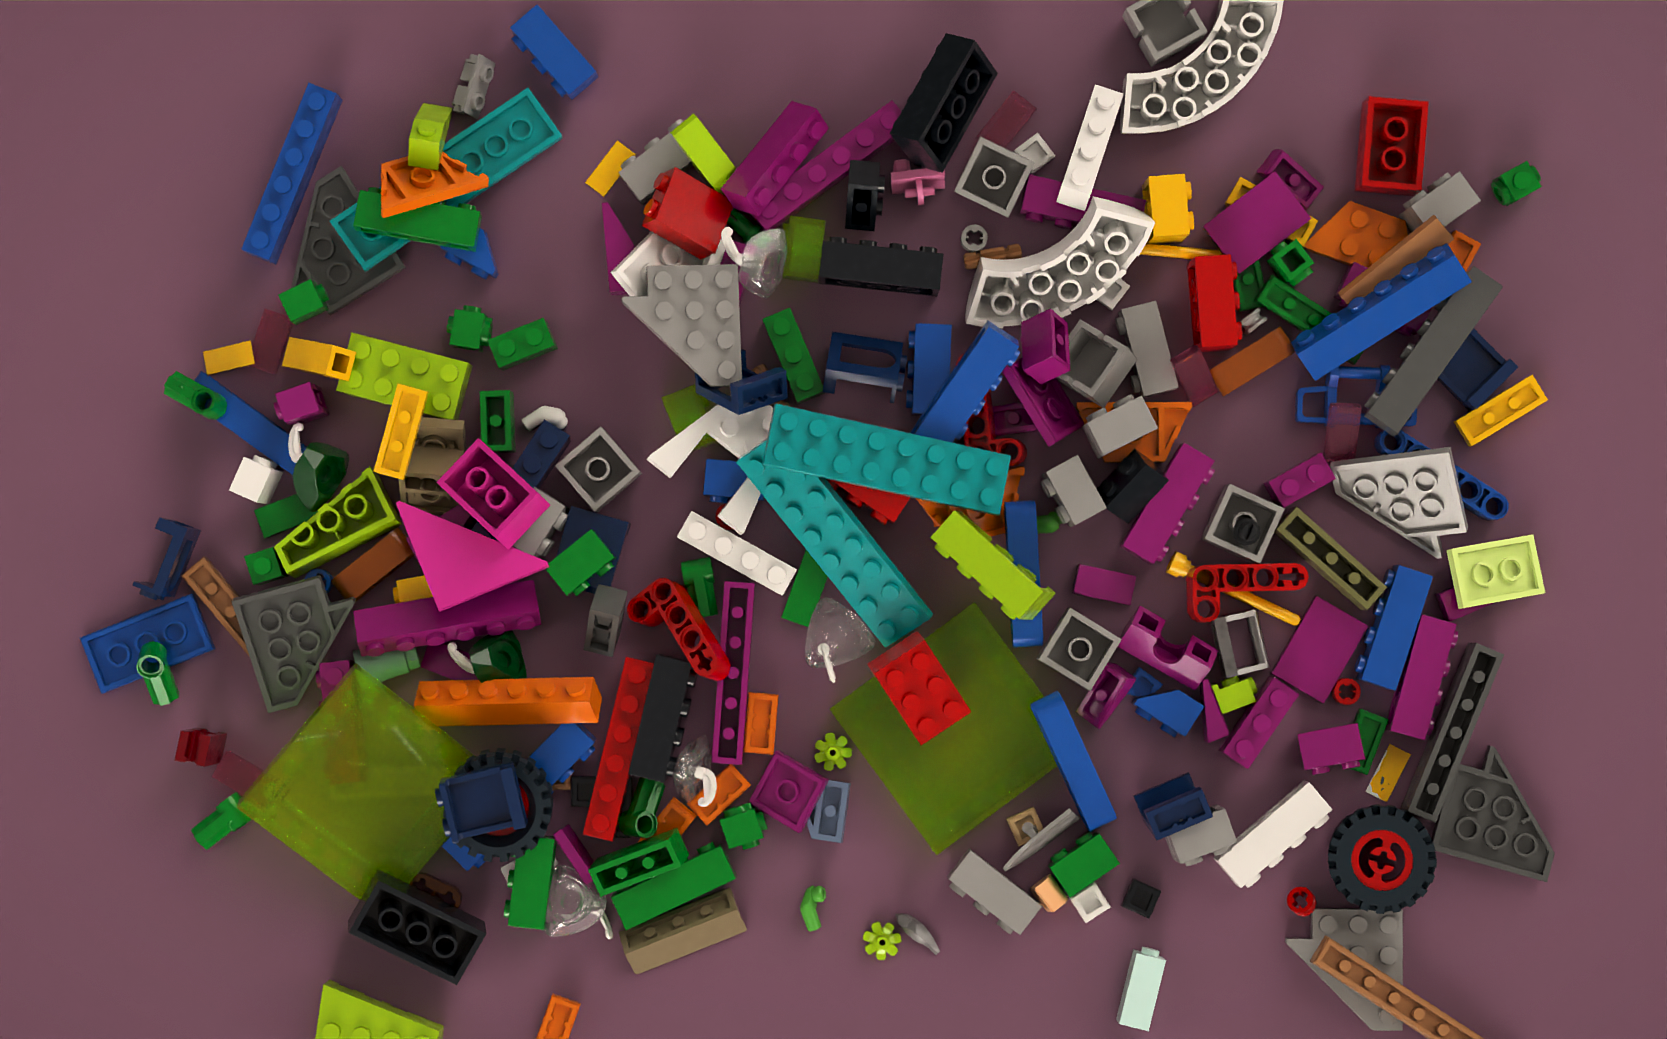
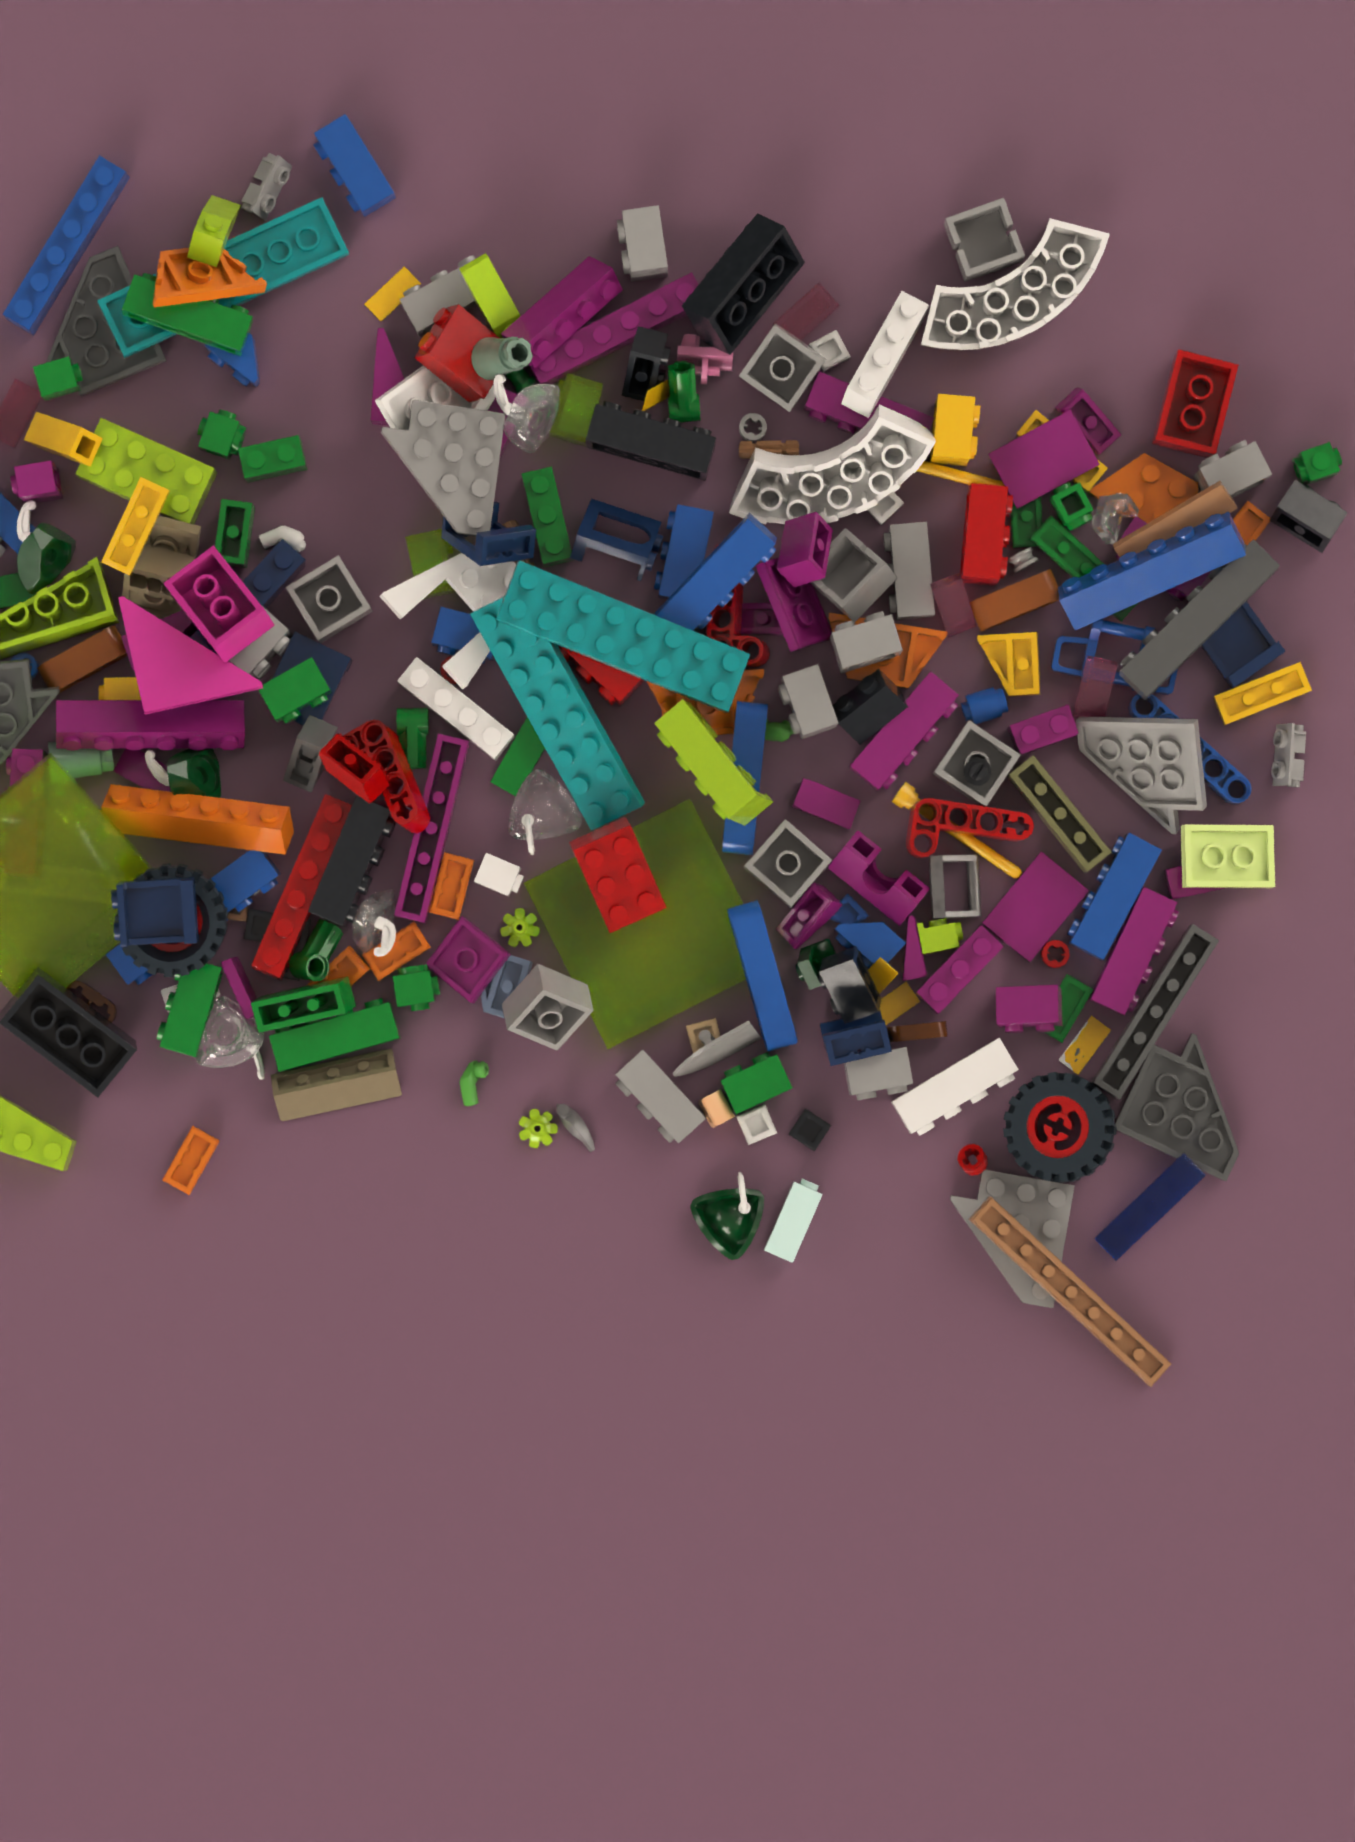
camera: 10 degrees right, 0 degrees up
(649, 629) = (354, 768): none -> red brick
(724, 210) = (500, 356): none -> sand green plant
(805, 705) = (499, 875): none -> white brick
(842, 79) = (644, 243): none -> light grey piece
(873, 826) = (547, 1007): none -> light grey brick
(880, 220) = (656, 395): none -> yellow sticker
(903, 222) = (683, 400): none -> green piece
(1079, 996) = (729, 1217): none -> dark green hat
(1119, 737) = (810, 961): none -> dark green bracket
(1157, 755) = (849, 985): none -> black brick
(1181, 745) = (882, 974): none -> yellow sticker
(1201, 763) = (897, 1002): none -> yellow sticker
(1230, 787) = (917, 1031): none -> reddish brown beam
(1239, 466) = (984, 705): none -> blue brick
(1260, 419) = (1014, 660): none -> yellow wing
(1328, 265) = (1110, 514): none -> clear bracket
(1478, 918) = (1150, 1206): none -> clear blue tile
(1517, 235) = (1308, 516): none -> brick
(1532, 452) = (1287, 741): none -> light grey hinge

